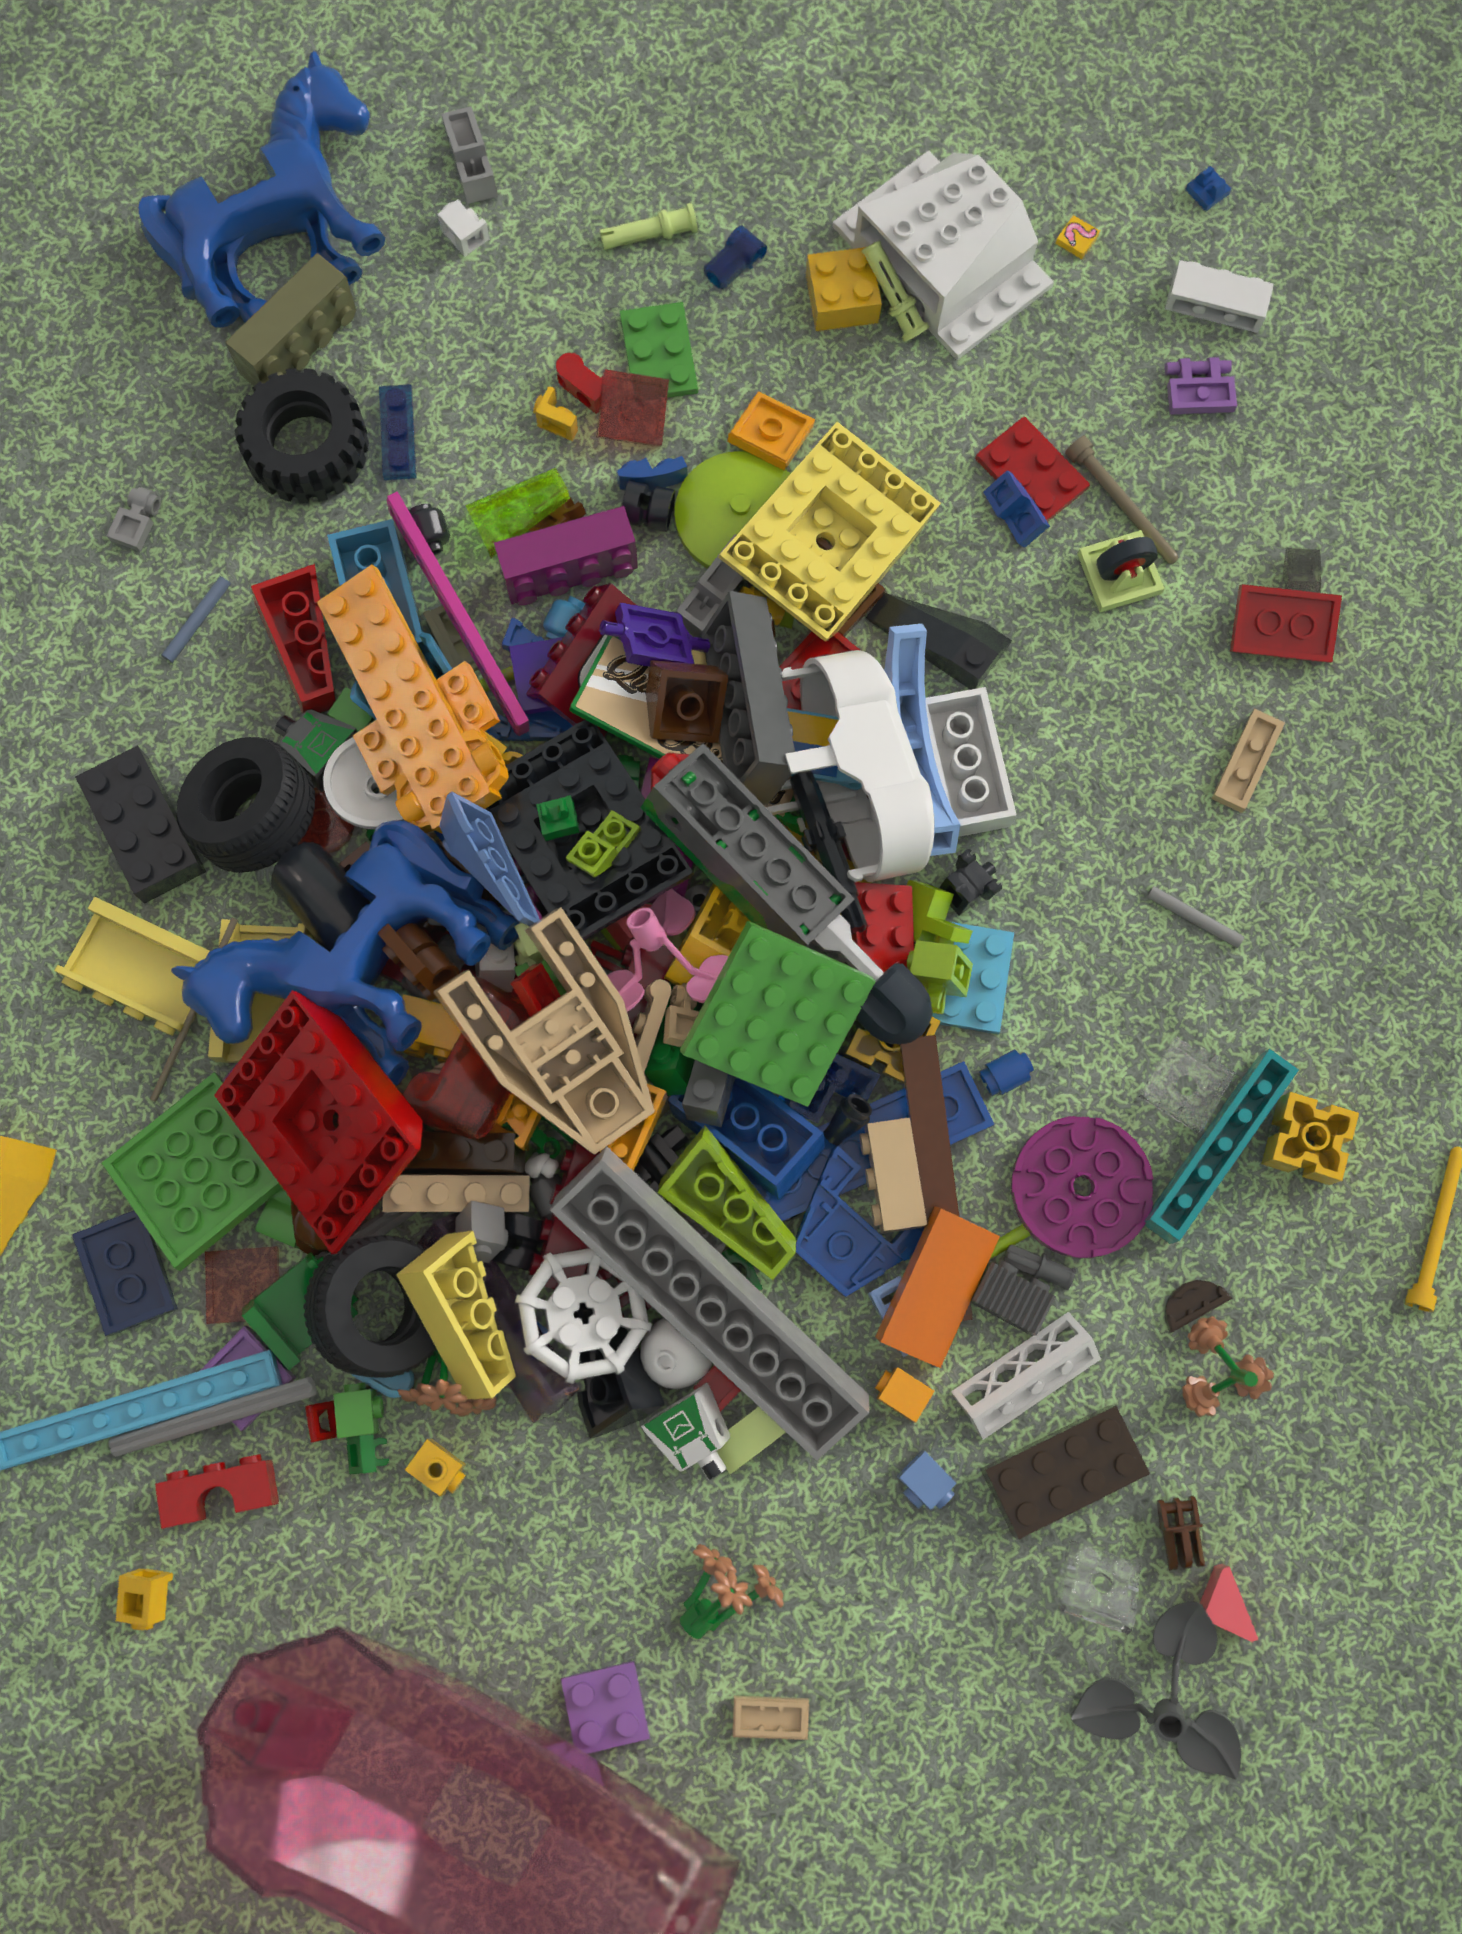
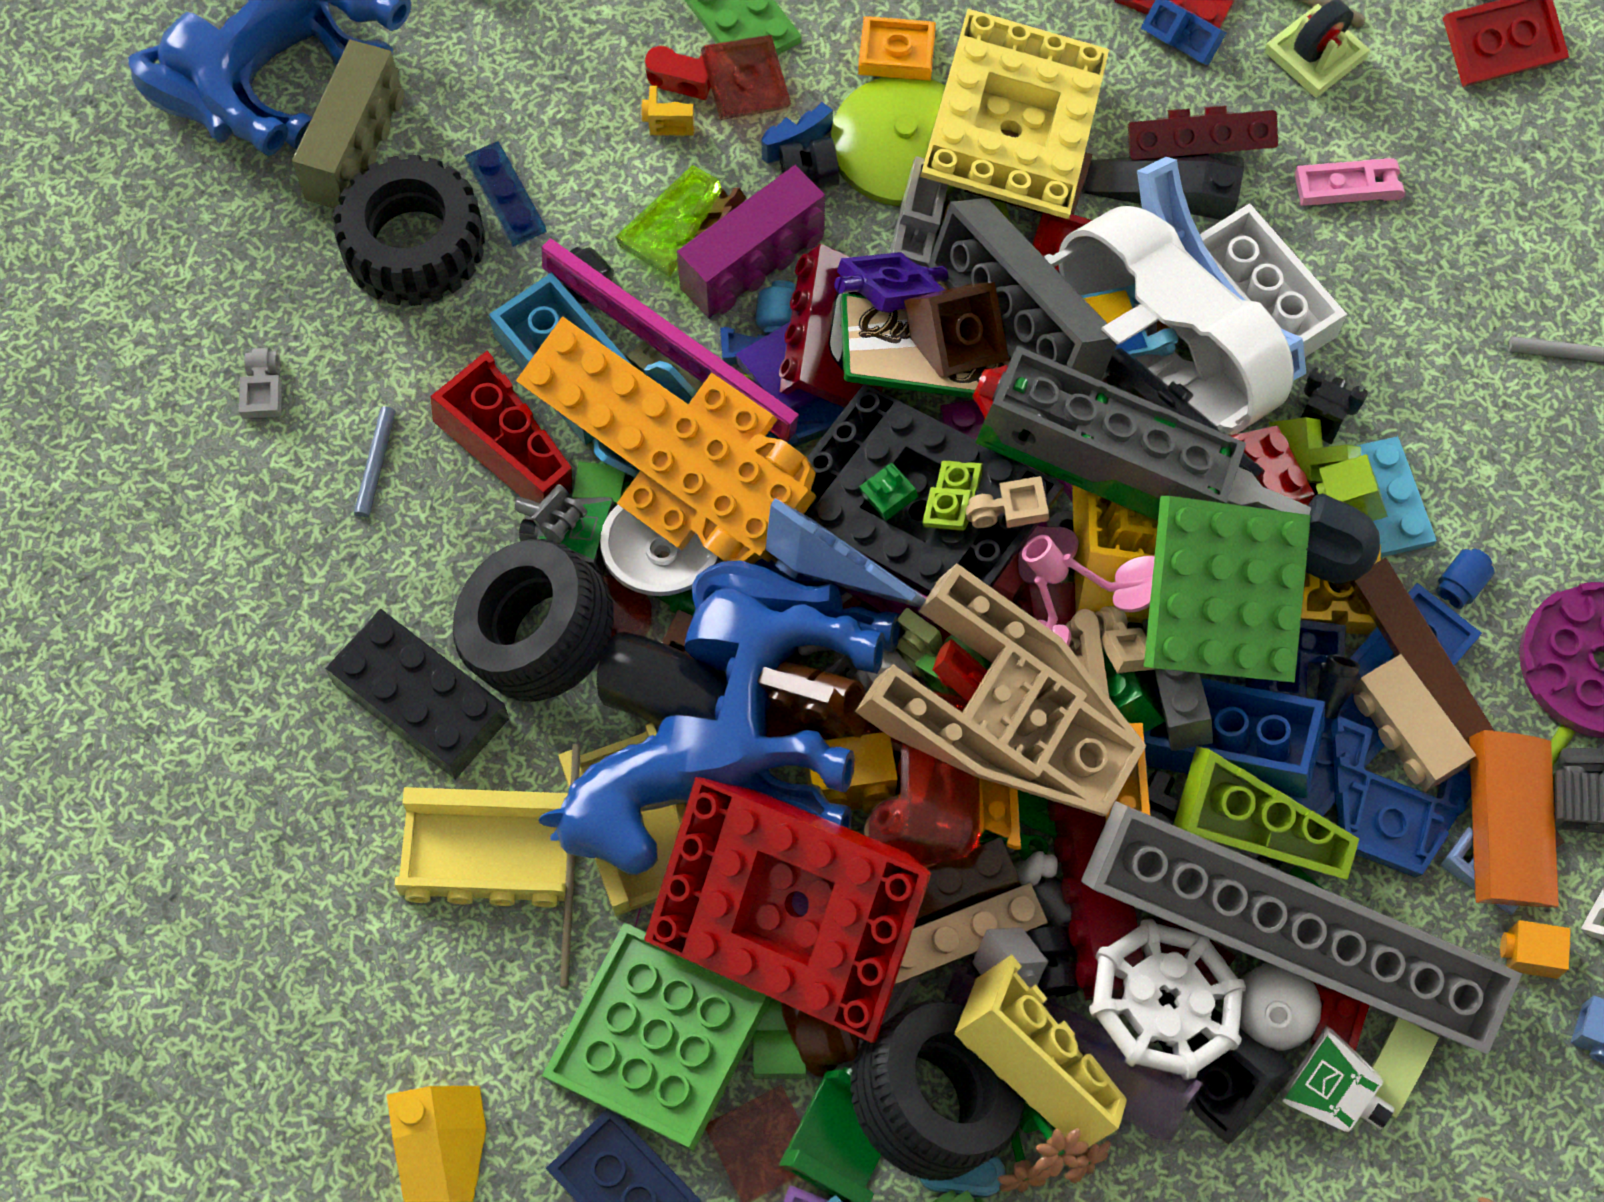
camera: 20 degrees left, 10 degrees down
(300, 724) = (554, 514): none -> dark grey arm
(645, 876) = (1020, 500): none -> tan plate
(983, 606) = (1202, 133): none -> dark red bracket
(1088, 698) = (1349, 182): none -> bright pink plate
(1248, 760) = (1539, 180): tan plate -> none

